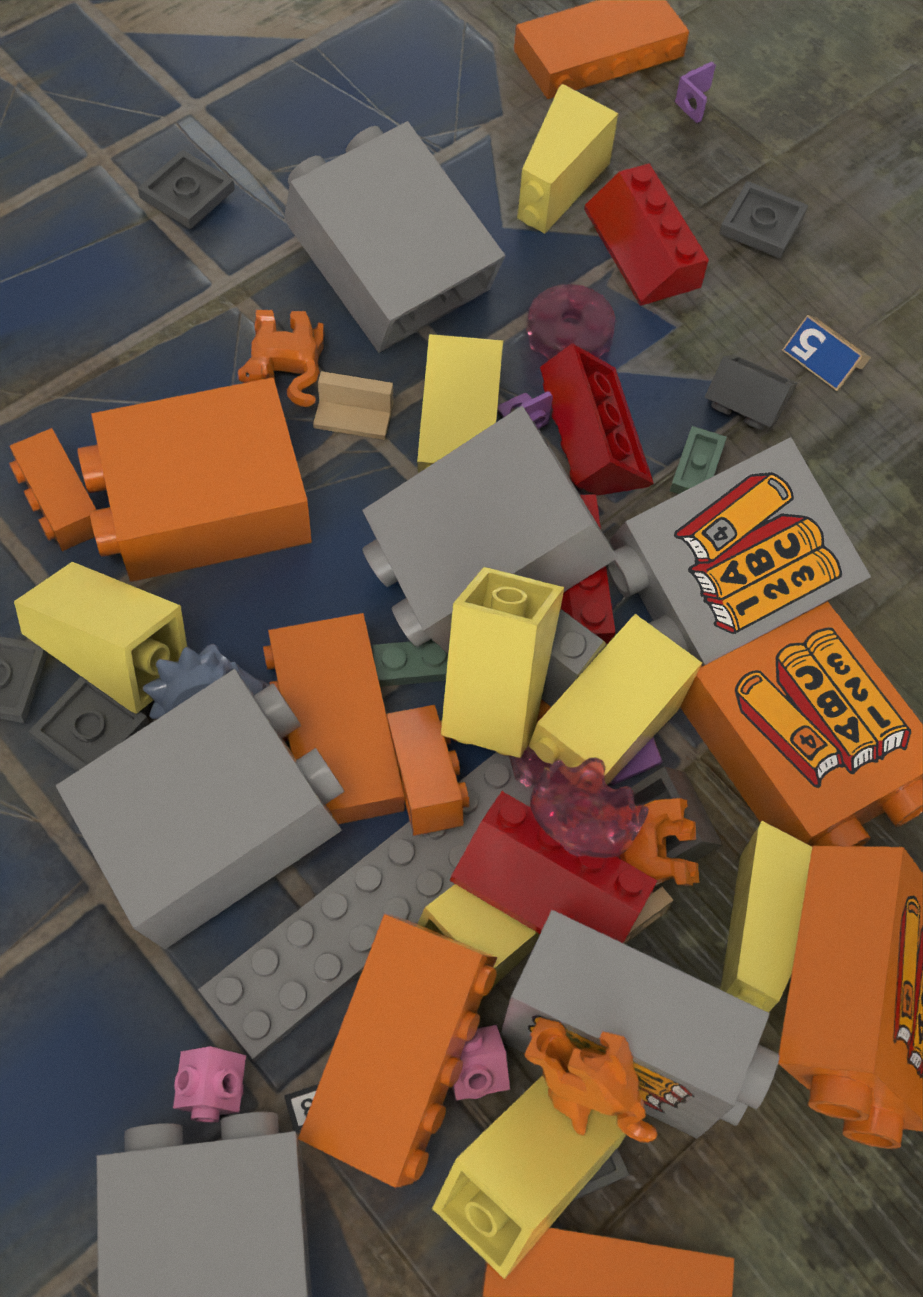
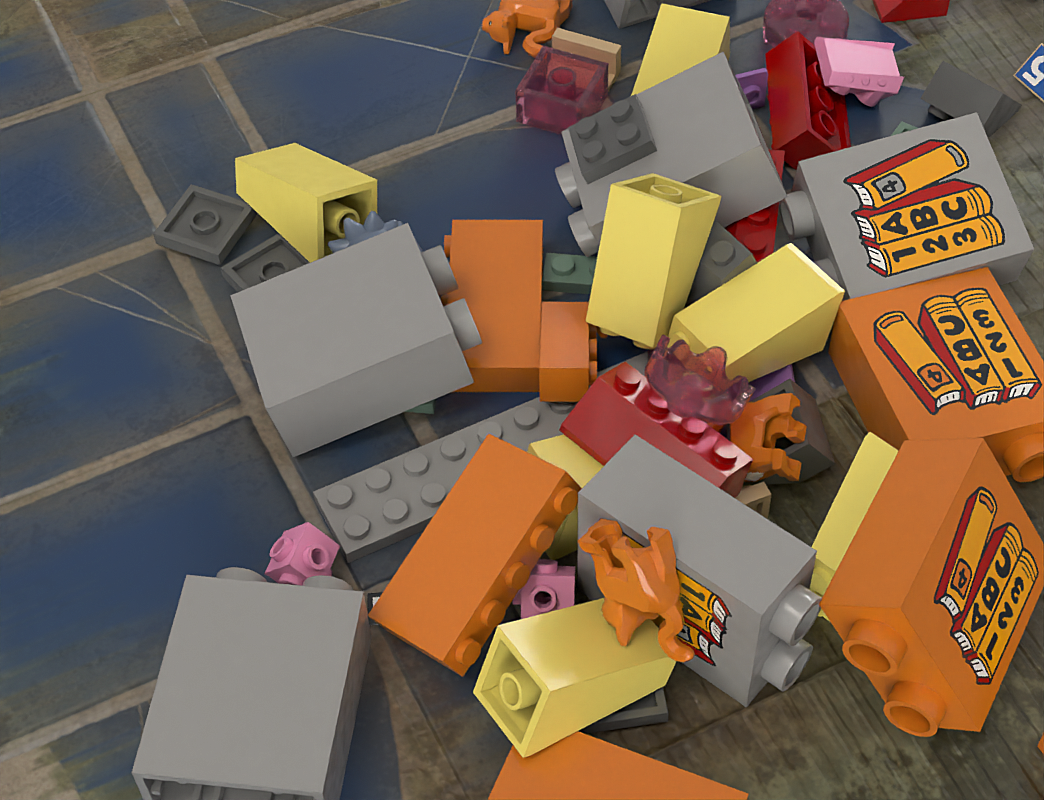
camera: 20 degrees right, 10 degrees down
(53, 489) = (296, 91): orange brick -> none
(196, 480) = (420, 96): orange brick -> none
(344, 449) = (560, 90): none -> clear pink brick
(424, 521) = (612, 139): none -> dark grey plate
(637, 371) = (859, 68): none -> bright pink slope

